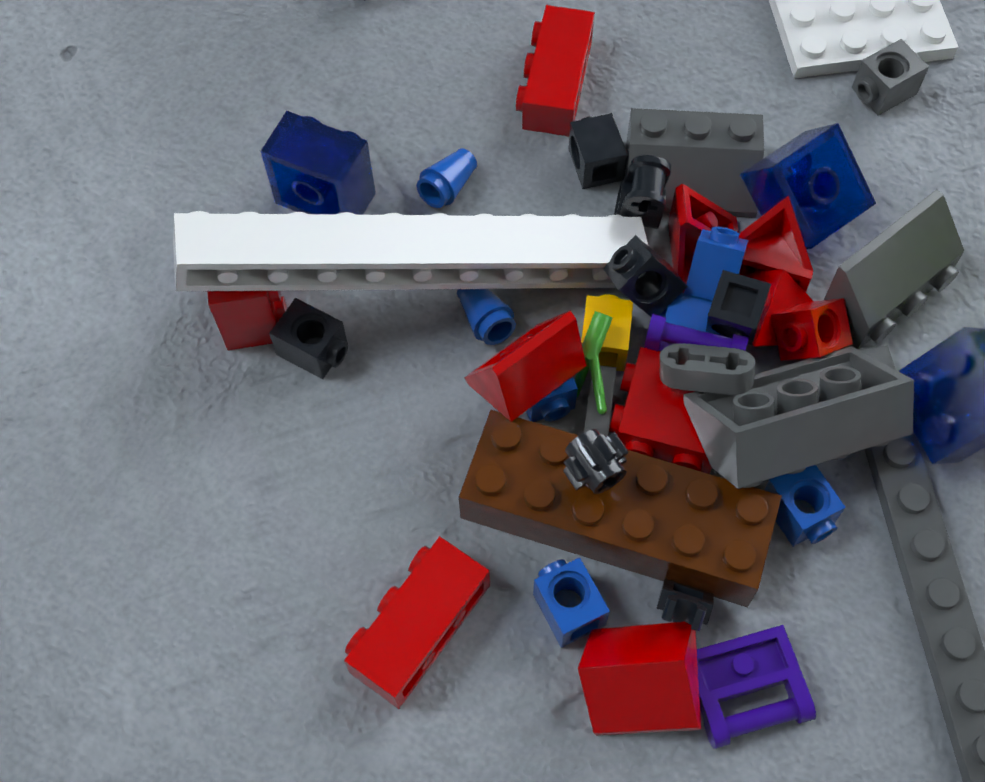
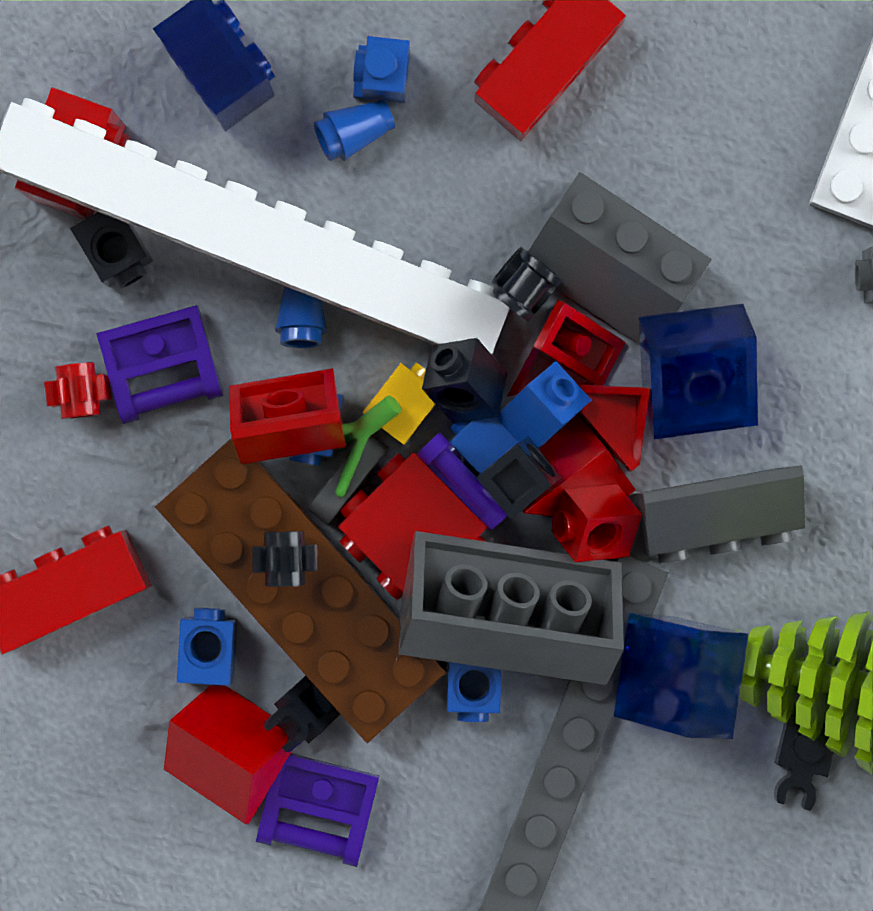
camera: 30 degrees right, 25 degrees up
(340, 454) = (77, 390): none -> red gear
(387, 393) = (154, 347): none -> dark purple plate
(445, 126) = (382, 69): none -> blue brick
(597, 150) = (526, 185): black brick -> none
(707, 369) = (450, 521): dark grey beam -> none

